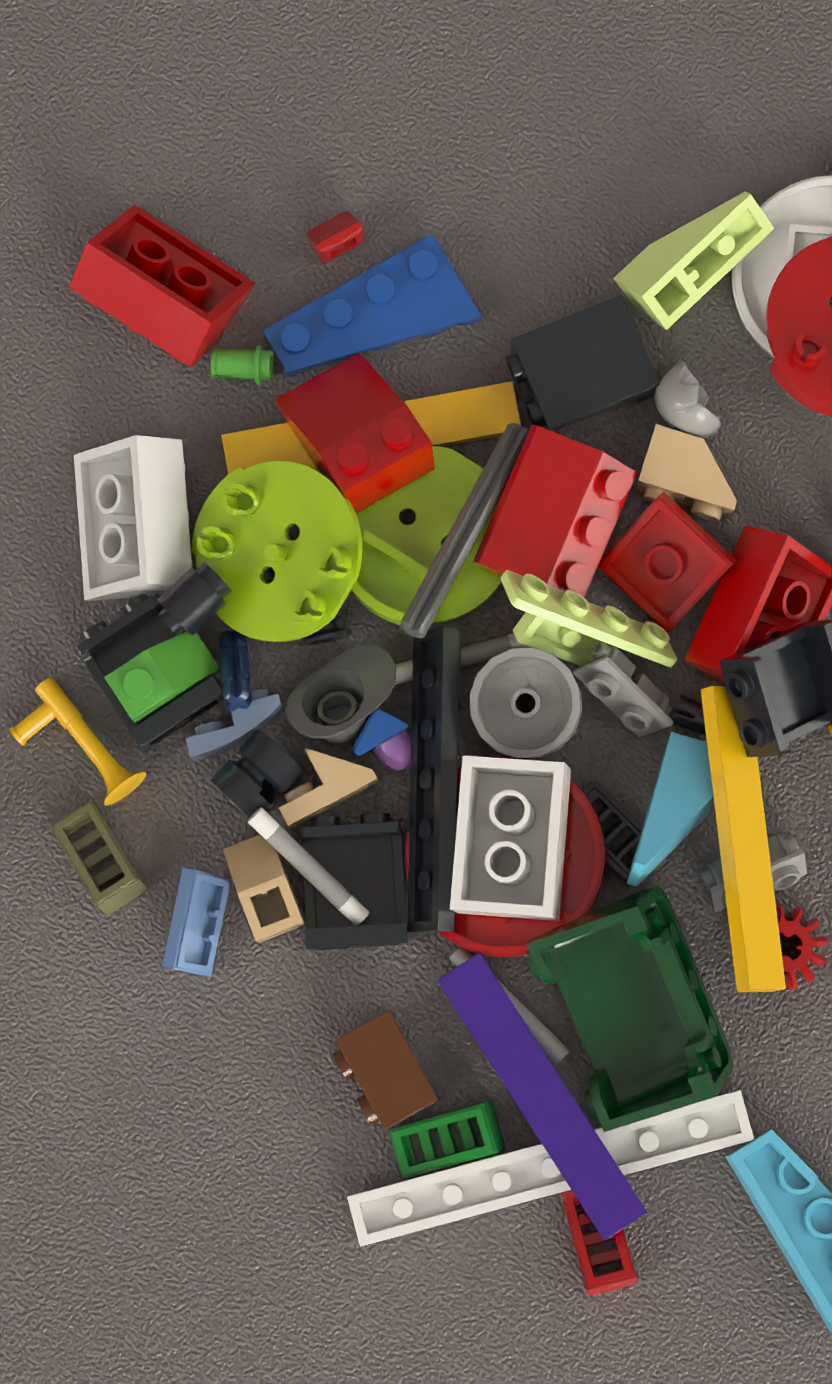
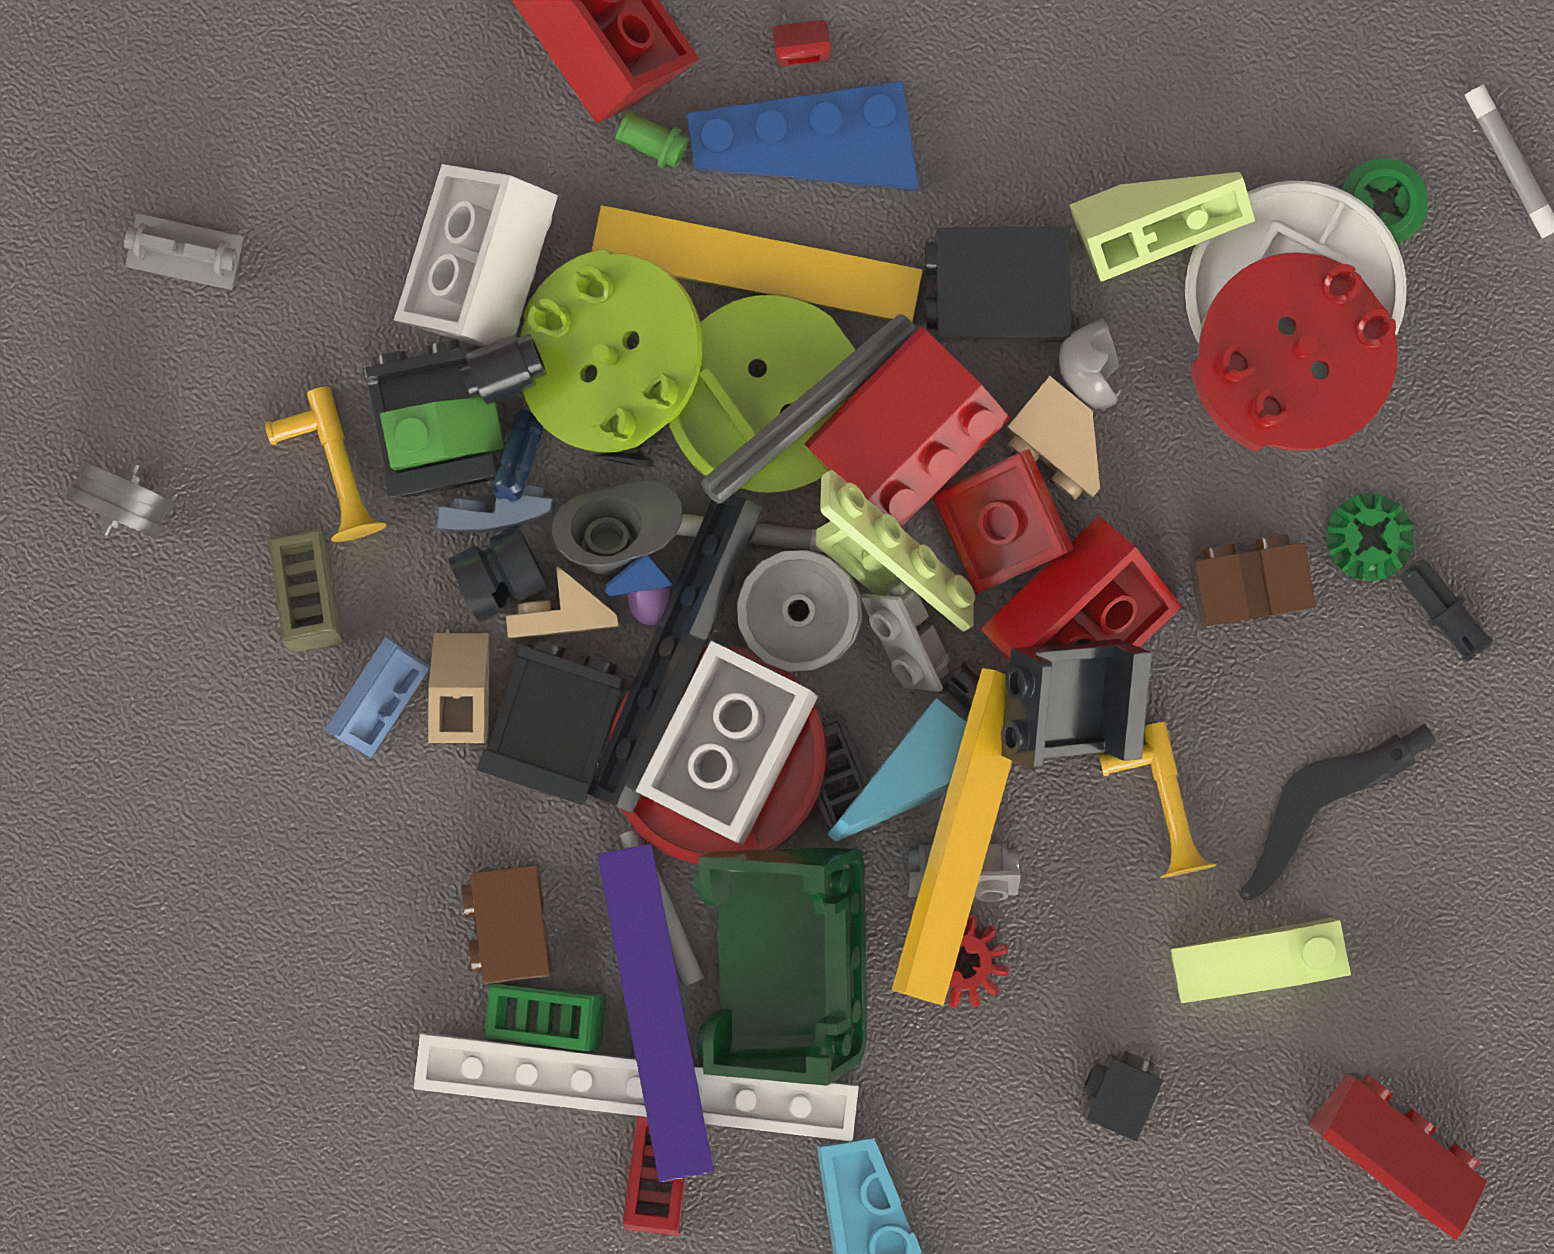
camera: 15 degrees right, 5 degrees up
(308, 866) = (512, 687): light grey bar -> none
(358, 431) = (740, 260): red slope -> none

